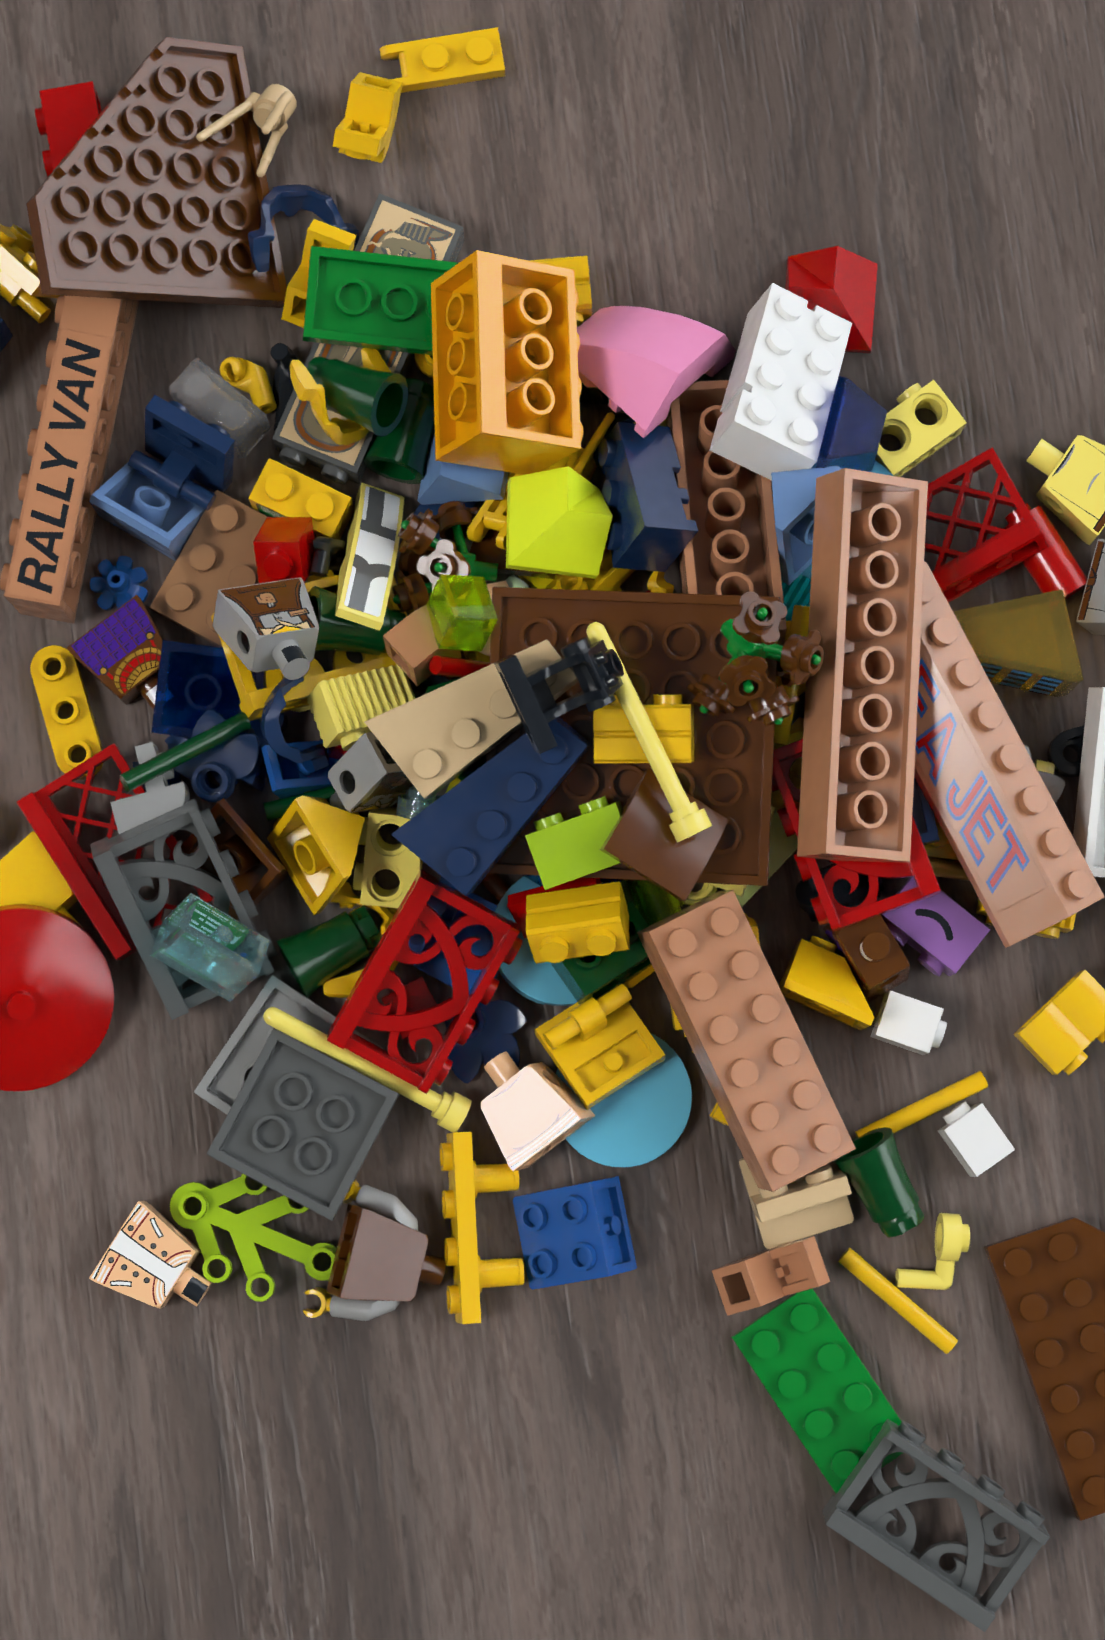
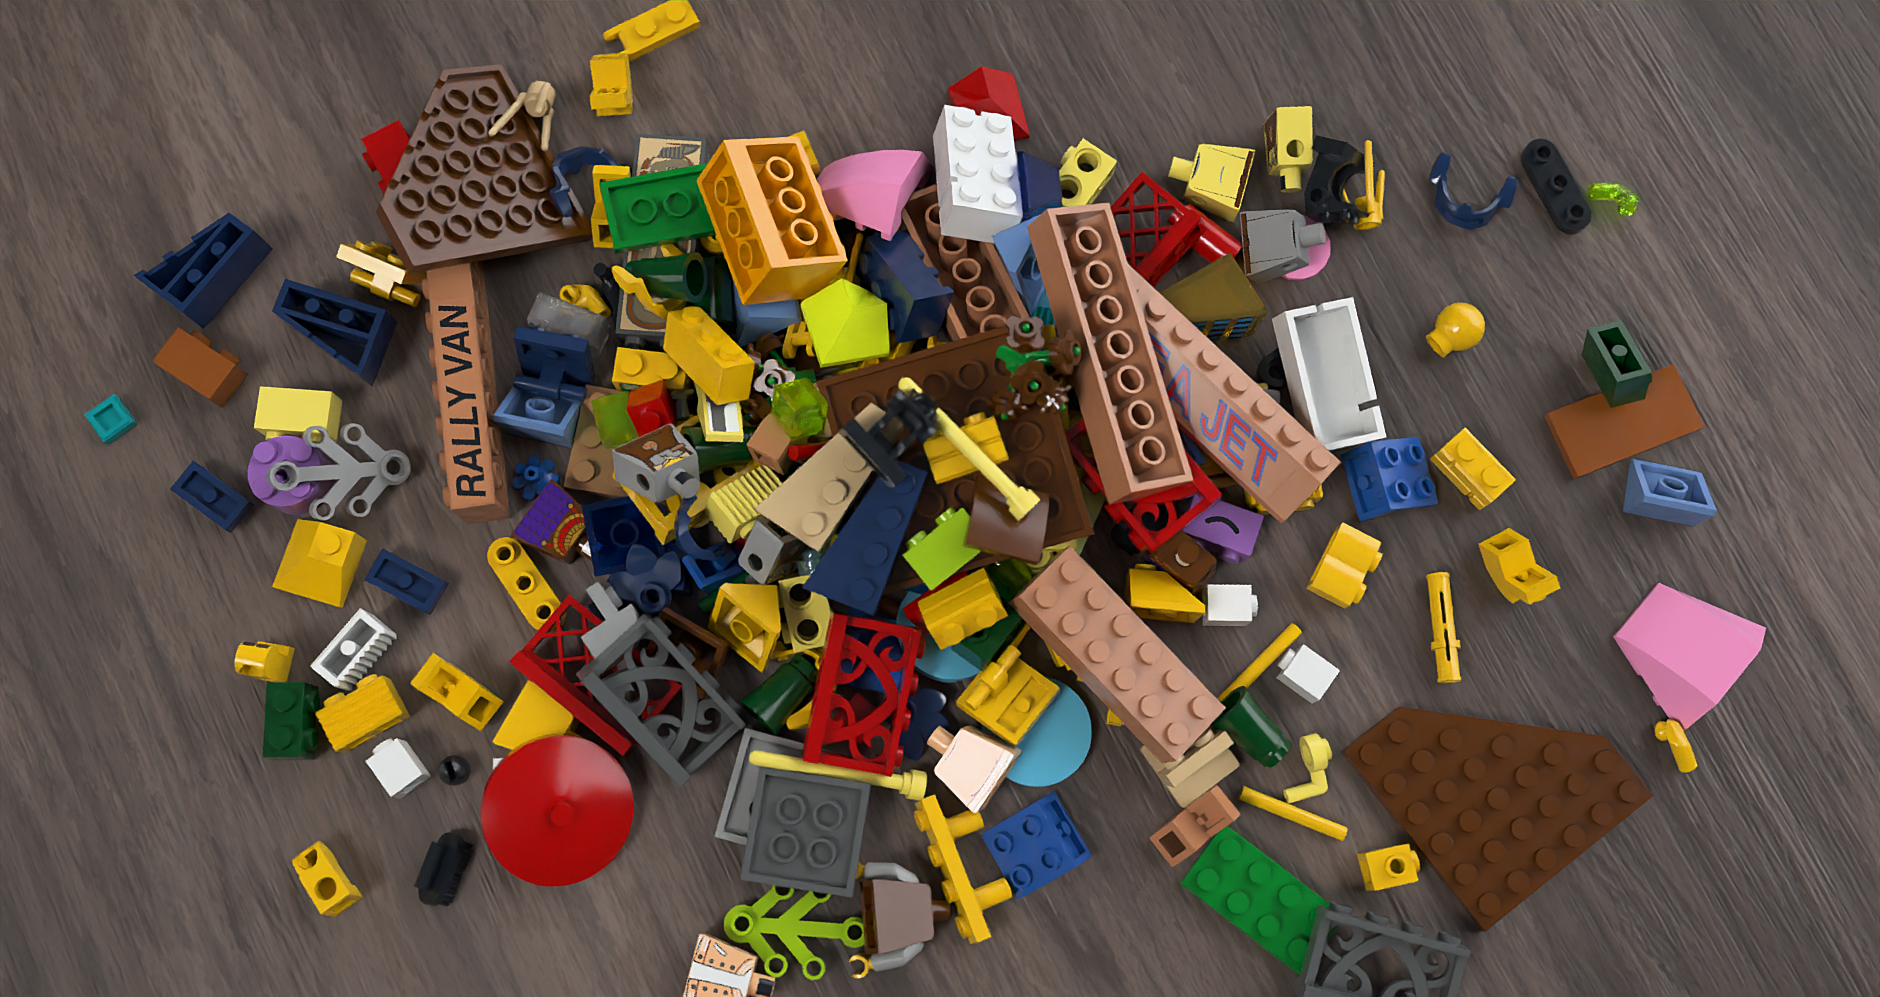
camera: 20 degrees left, 5 degrees down
(185, 751) = (624, 581): dark green bar -> none
(210, 947) = (692, 720): clear light blue brick -> none
(233, 549) = (613, 420): none -> clear neon green brick
(374, 508) = (708, 355): none -> yellow brick
(990, 1404) = (1388, 867): none -> yellow brick

